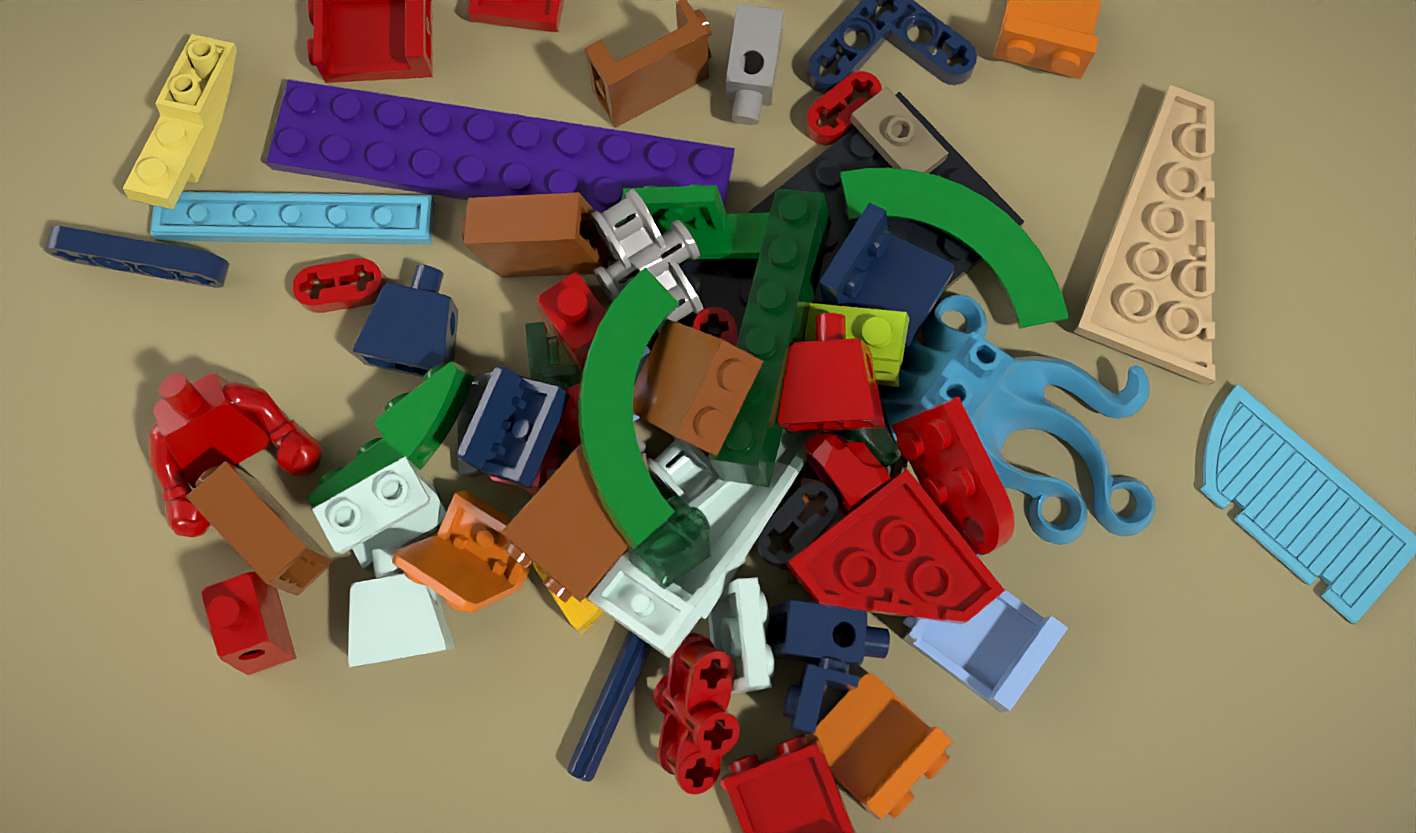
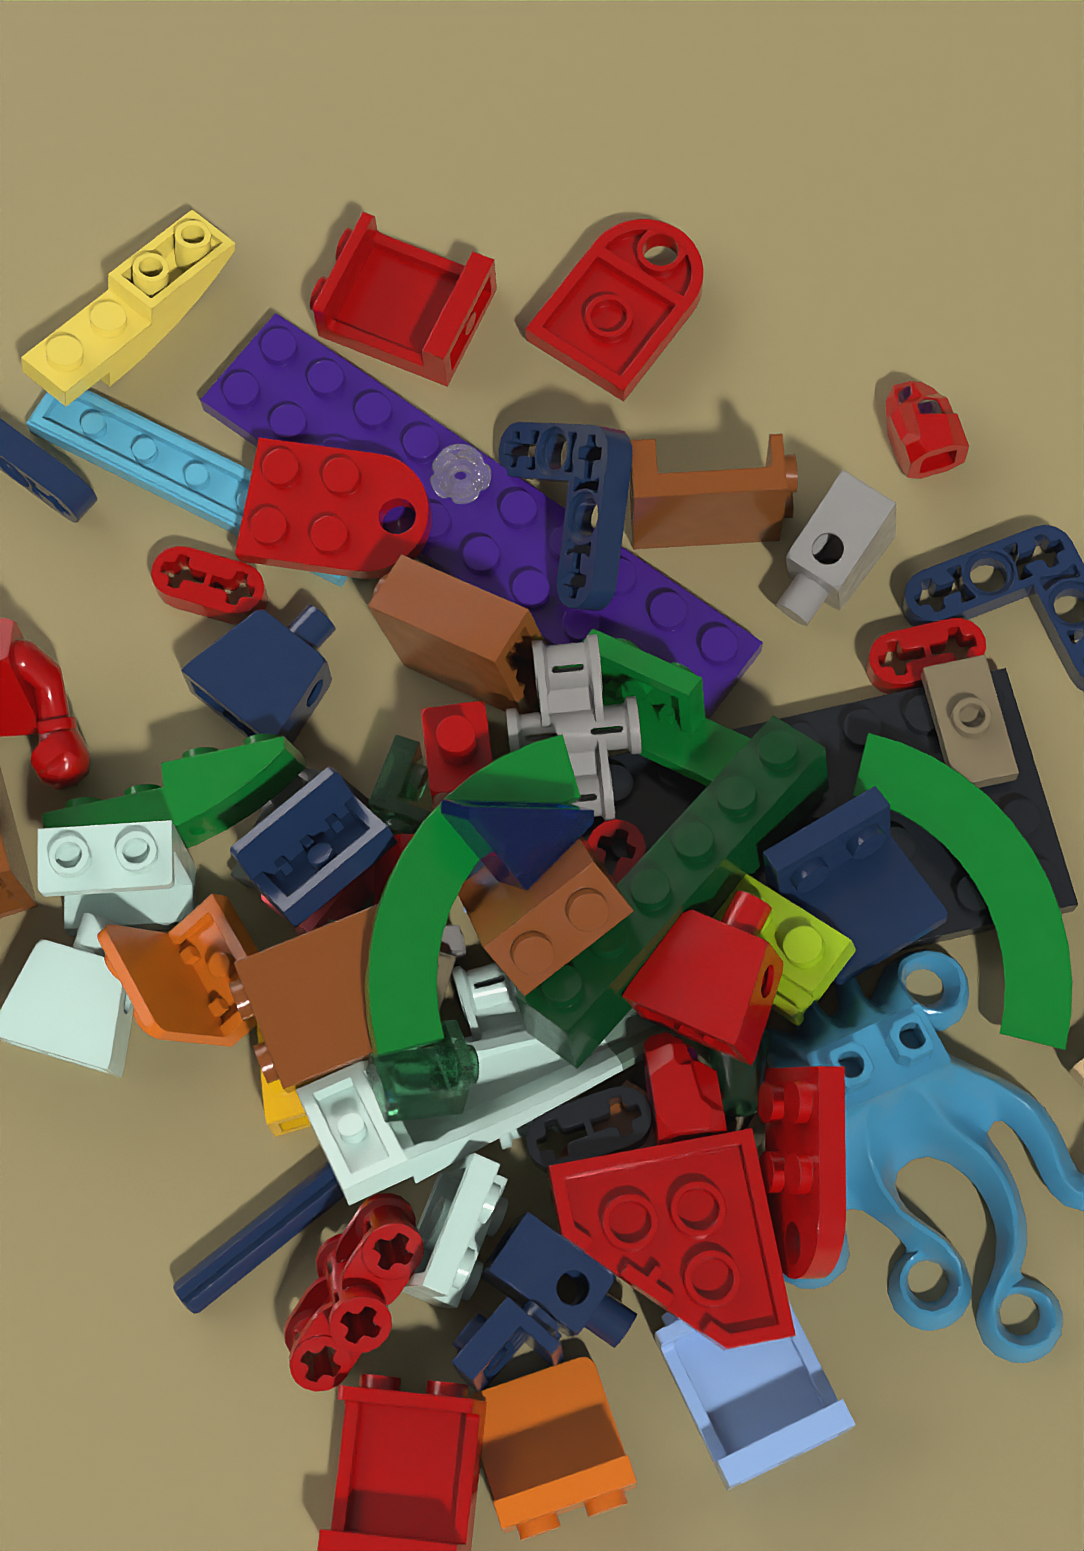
camera: 30 degrees right, 5 degrees down
(396, 194) = (327, 510): none -> red plate
(472, 117) = (456, 459): none -> clear plate
(561, 86) = (597, 474): none -> dark blue beam
(656, 351) = (517, 837): none -> clear blue slope

